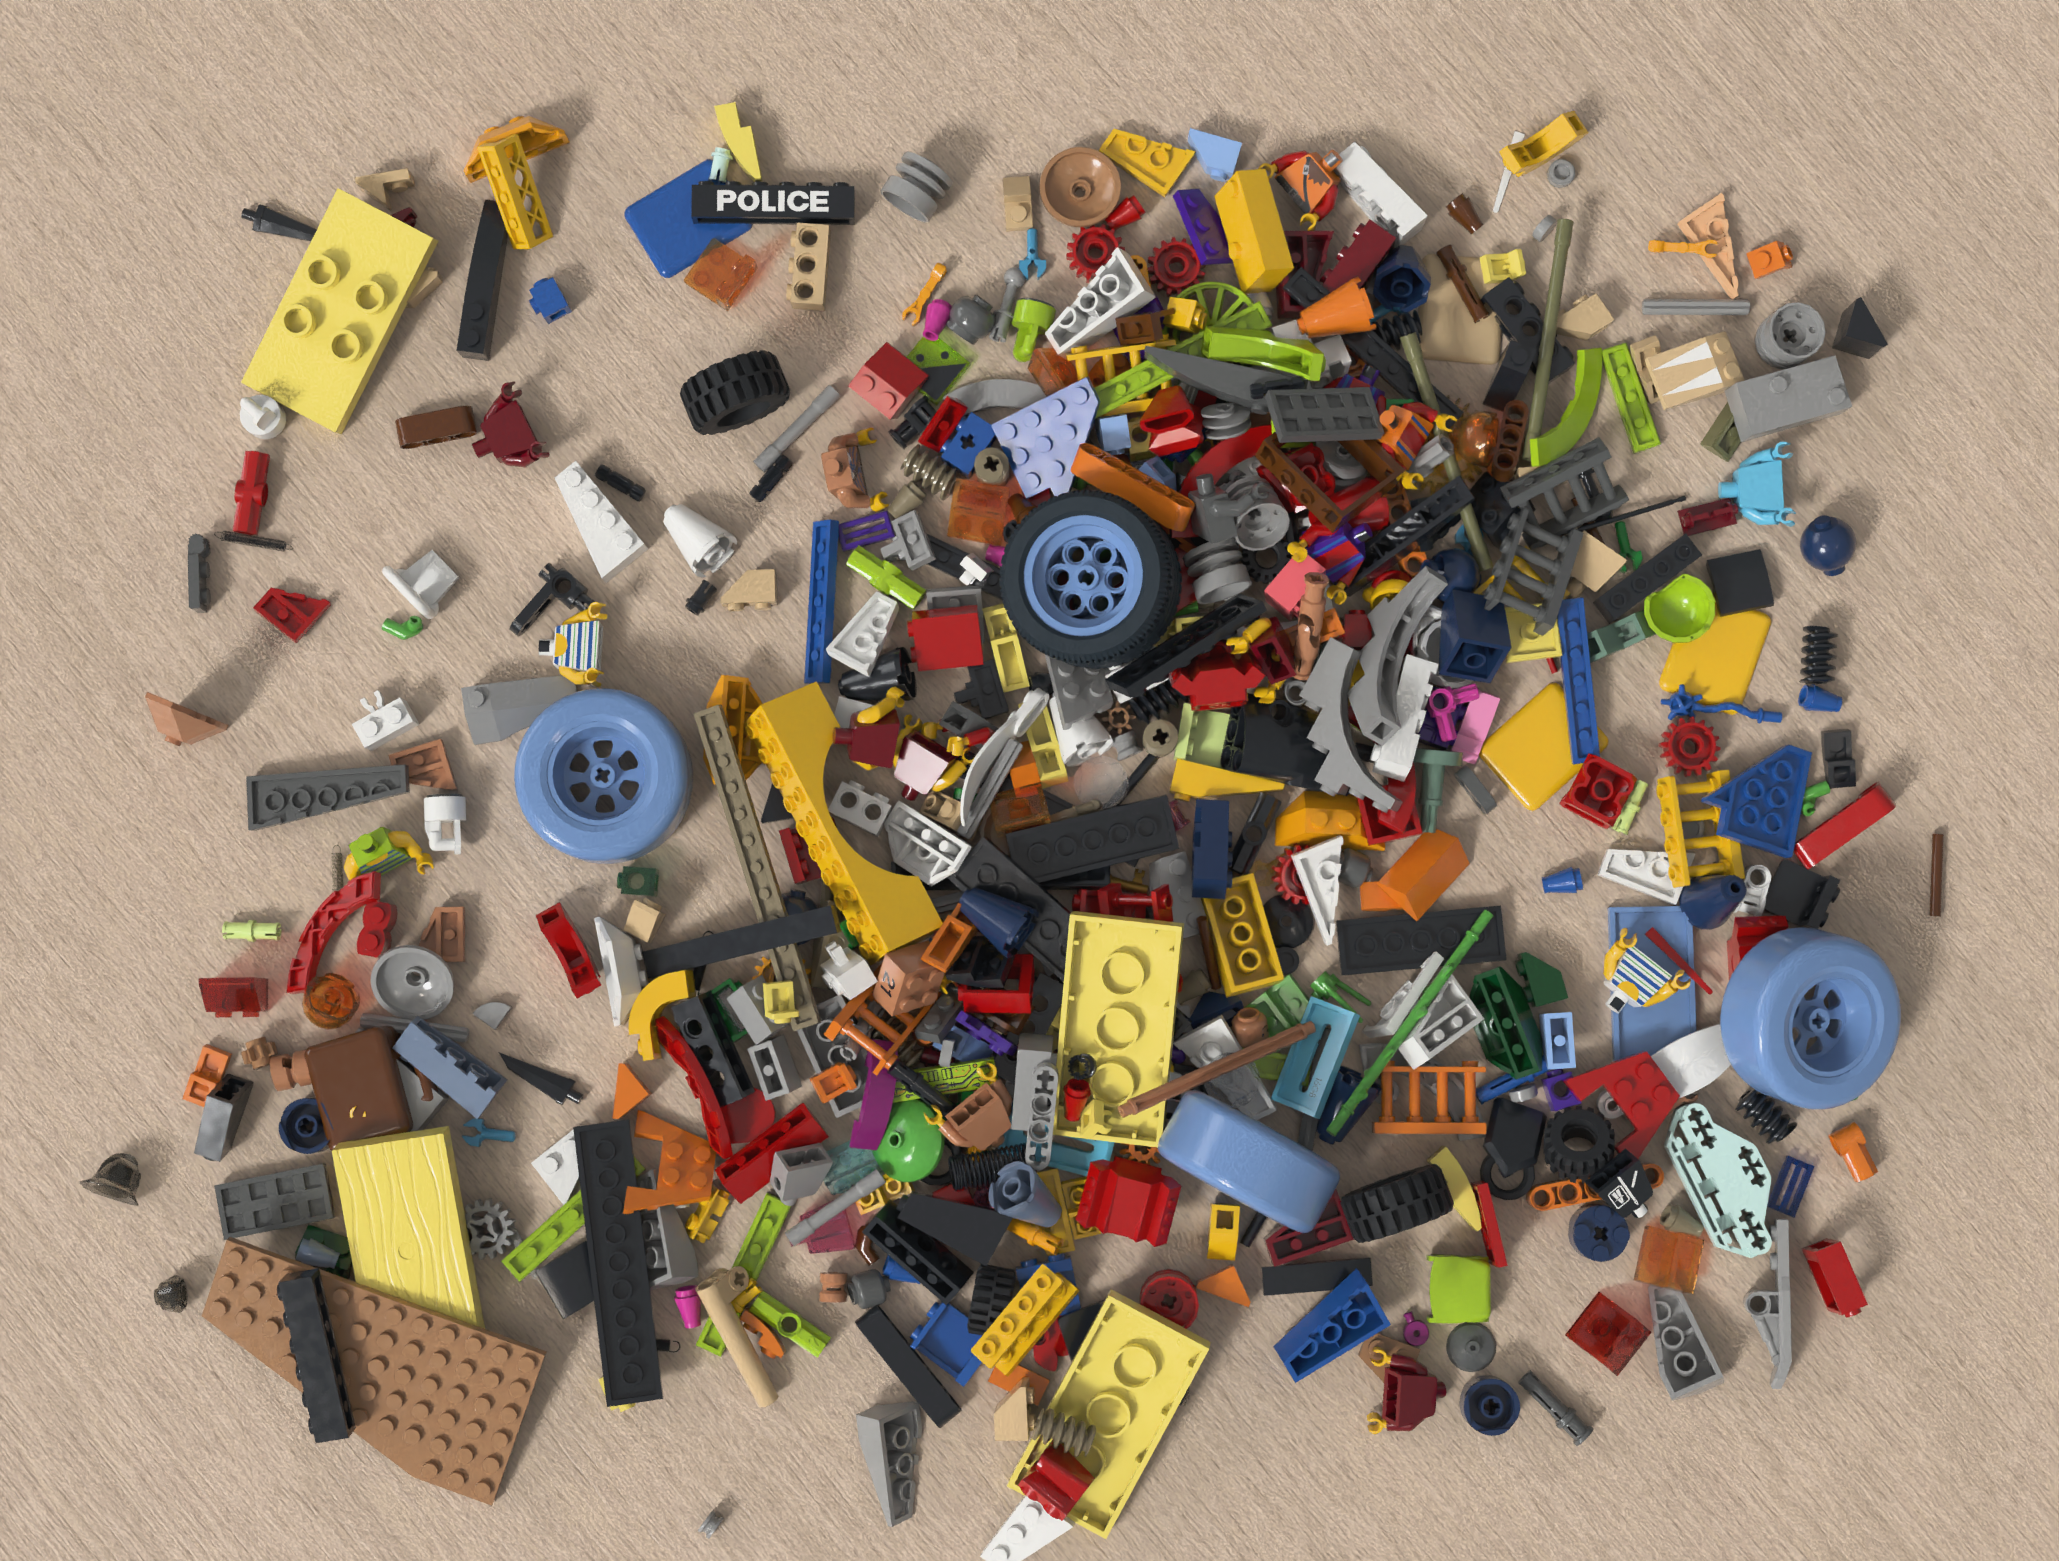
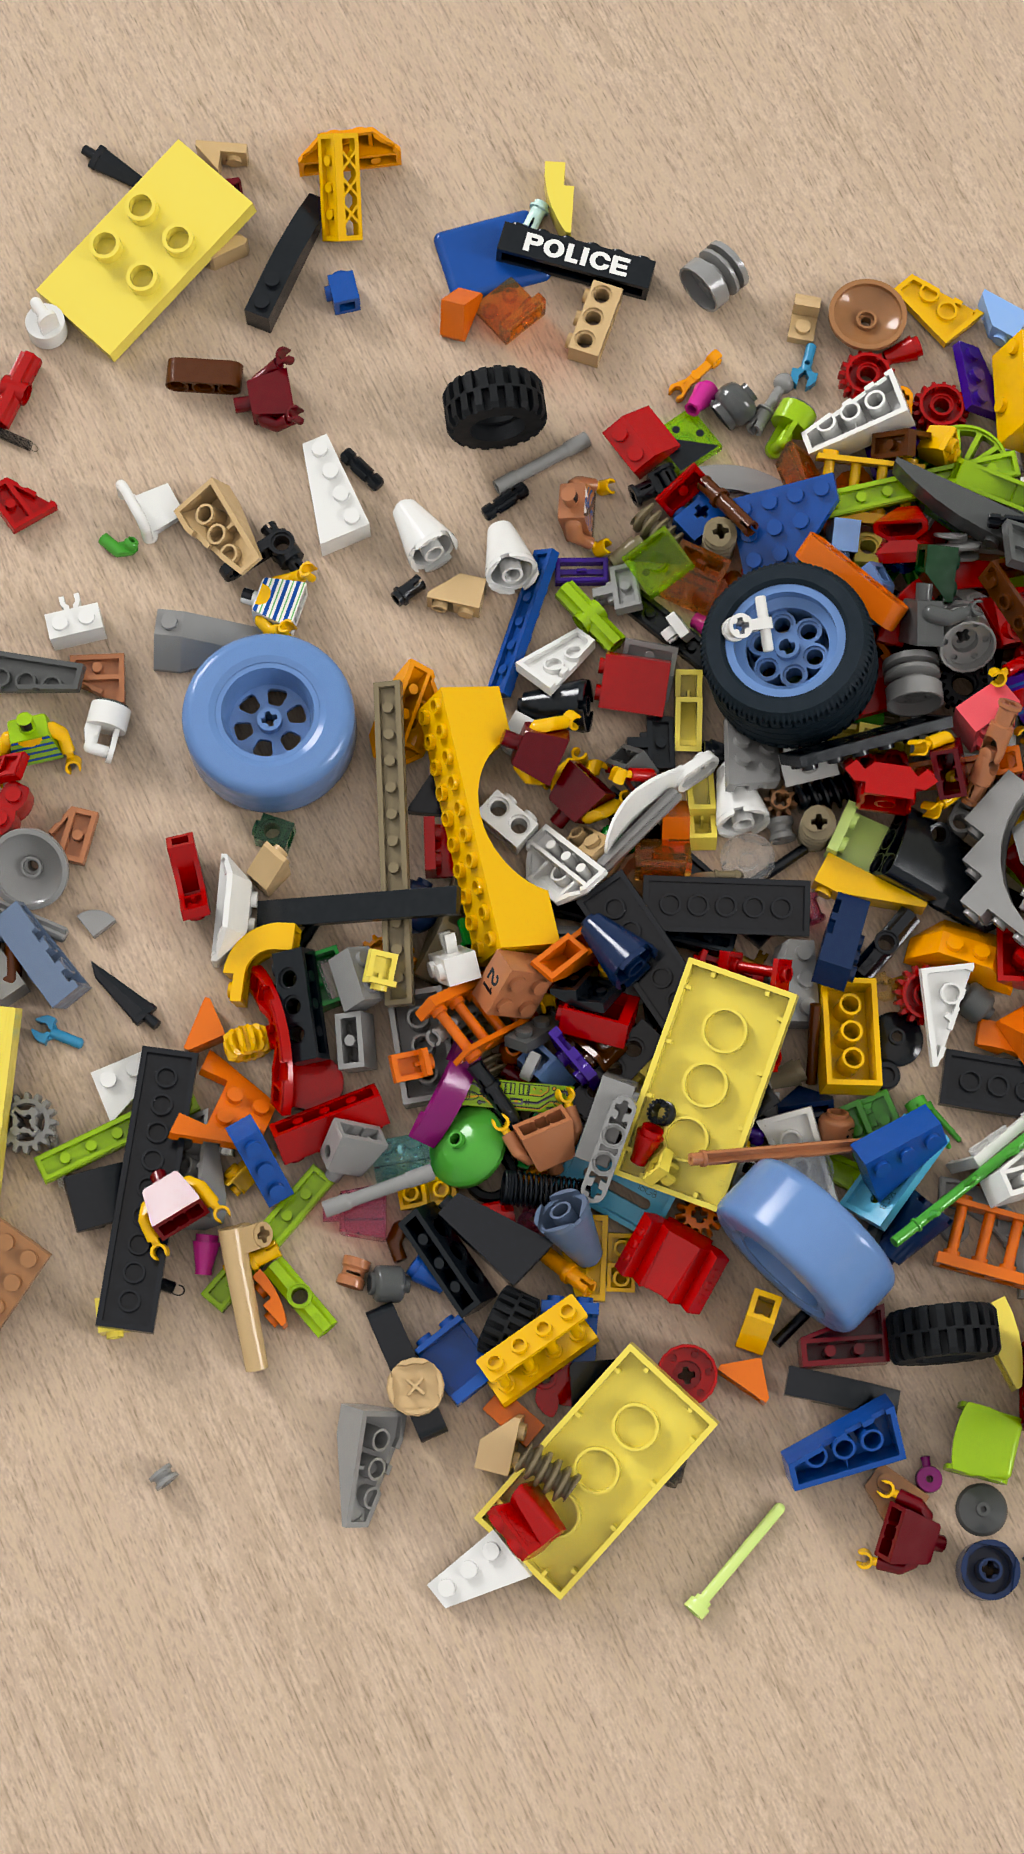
camera: 10 degrees right, 10 degrees down
(496, 581) = (220, 525): none -> tan wedge
(647, 1278) = (173, 1205): none -> torso
(670, 1097) = (246, 1043): none -> yellow gear
(671, 291) = (458, 313): none -> orange slope
(715, 1211) = (259, 1160): none -> blue arch
(789, 541) = (508, 560): none -> white cone
(920, 1381) = (415, 1387): none -> tan tile
(938, 509) = (658, 562): none -> clear neon green tile
(982, 427) = (720, 499): none -> reddish brown pin
(1056, 567) = (762, 623): none -> white piece
(1213, 453) = (938, 566): none -> dark green slope
(1234, 1504) = (699, 1604): none -> yellowish green piece
(1314, 1040) = (898, 1150): none -> blue wedge

